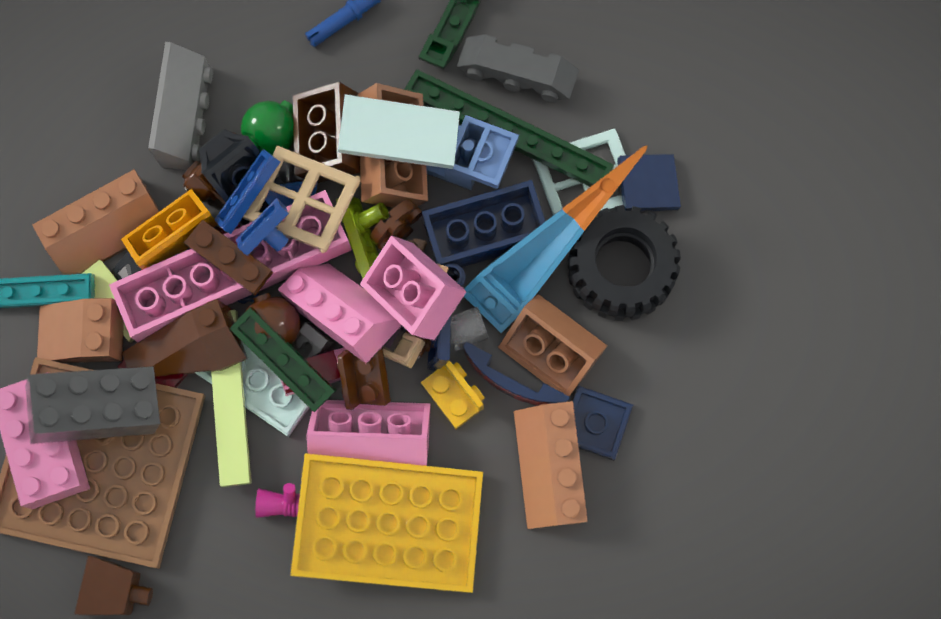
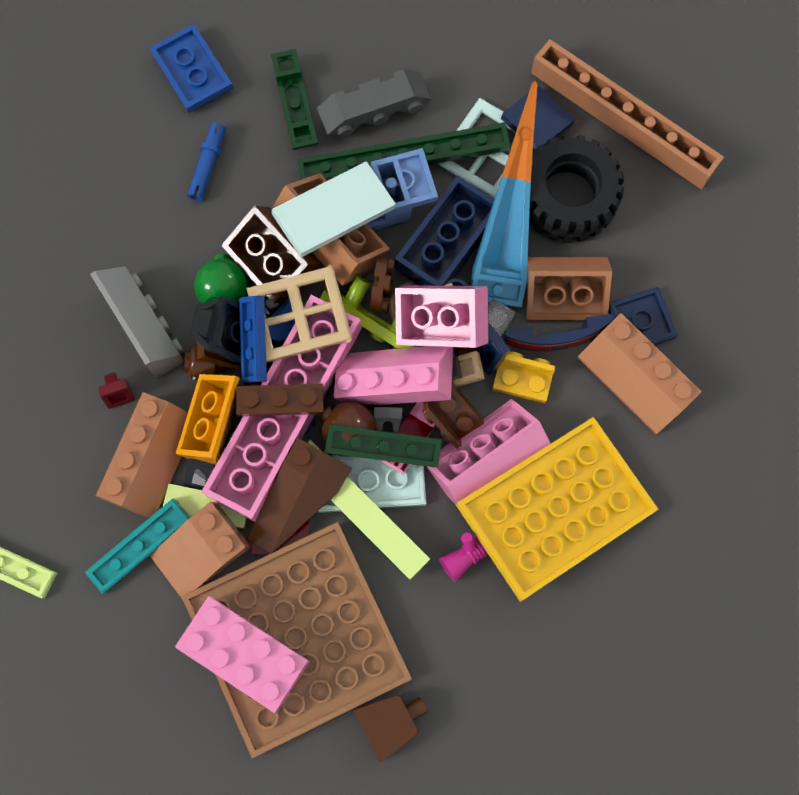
camera: 40 degrees left, 0 degrees up
(91, 404) = (266, 592): dark grey brick -> none
(118, 153) = (115, 391): none -> dark red tile
(265, 229) = (293, 355): blue tile -> none
(727, 235) = (626, 114): none -> nougat brick

